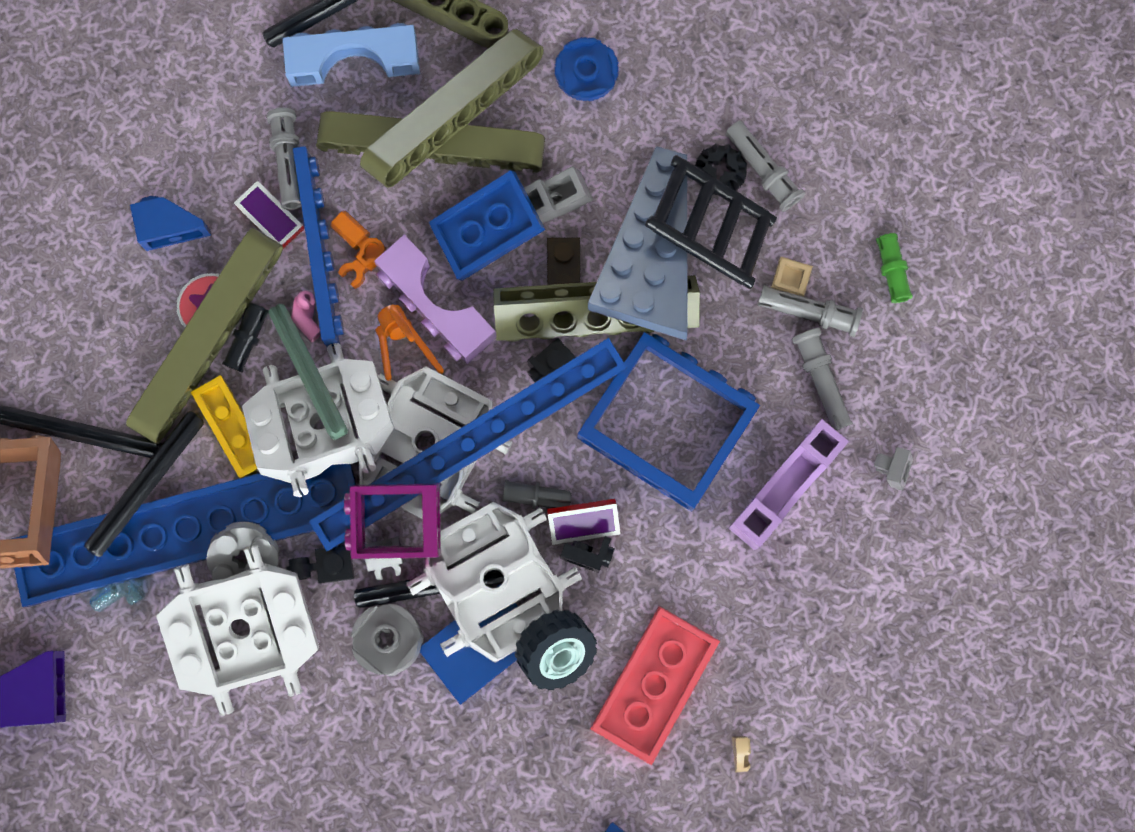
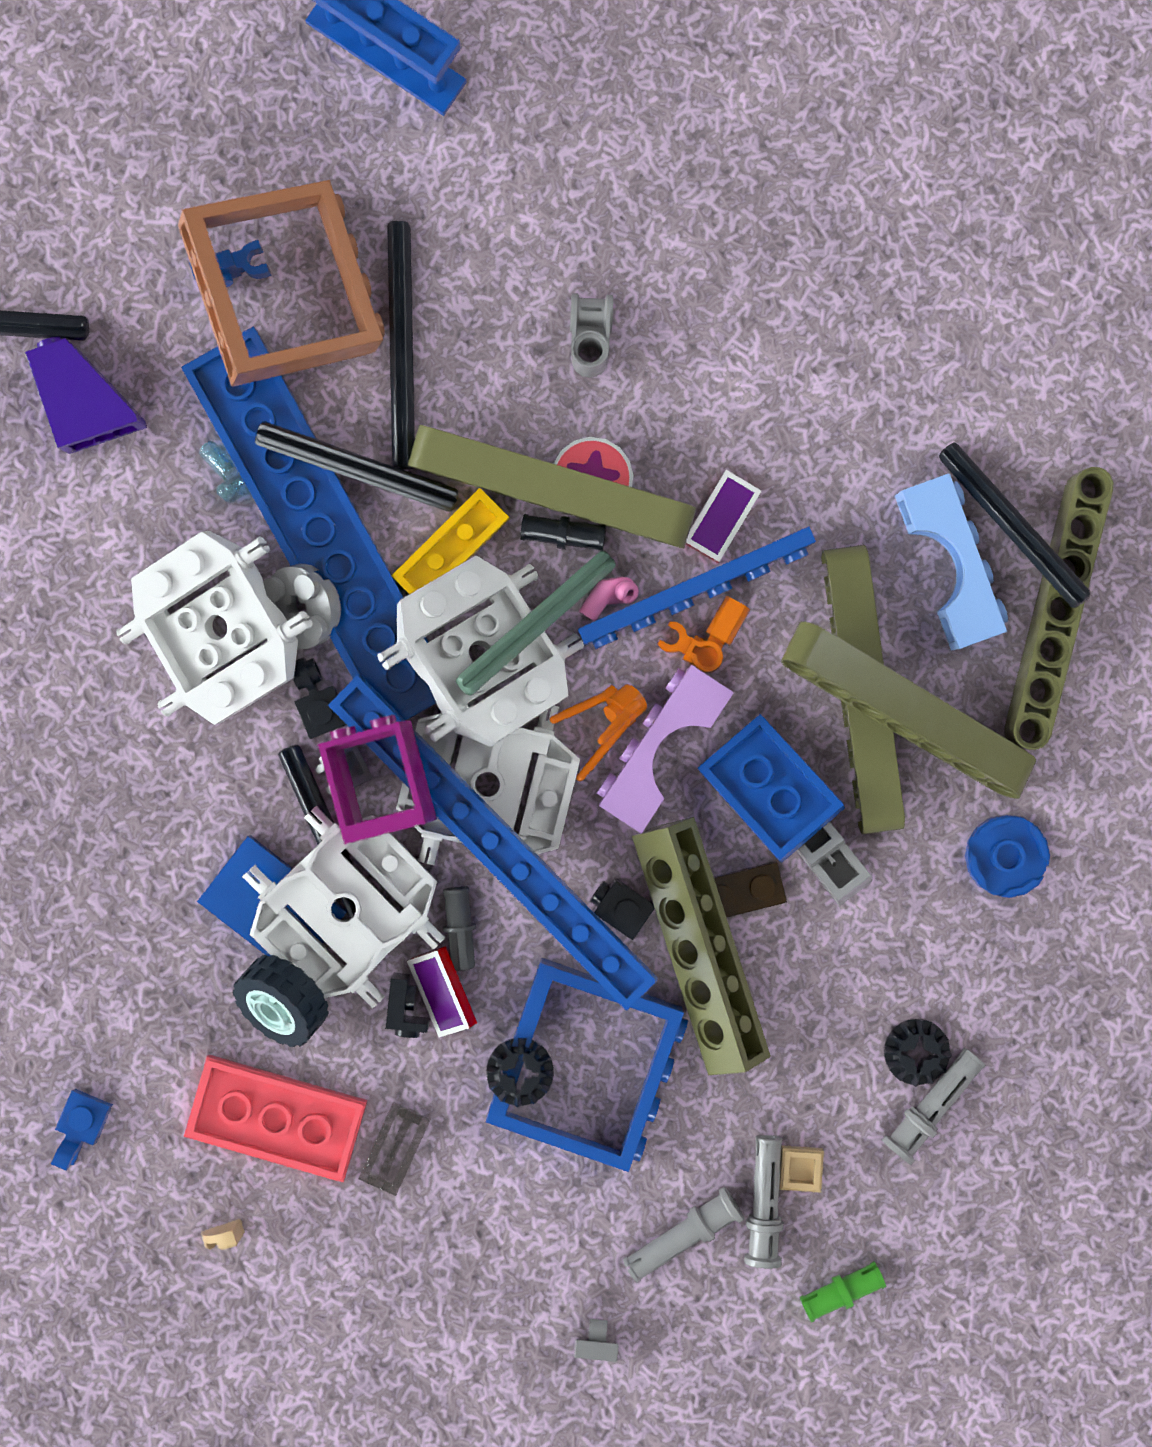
camera: 80 degrees right, 10 degrees up
(93, 278) = (590, 327): none -> light grey piece
(164, 224) = (679, 393): blue slope -> none
(283, 144) = (815, 507): light grey pin -> none
(367, 643) = (239, 776): light grey plate -> none
(644, 272) = (767, 1001): sand blue wing -> none
(668, 484) = (504, 1085): none -> black gear
(678, 574) = (409, 1116): none -> clear smoke tile
(686, 240) = (804, 1043): black bar -> none
(788, 484) = (513, 1207): lavender arch -> none

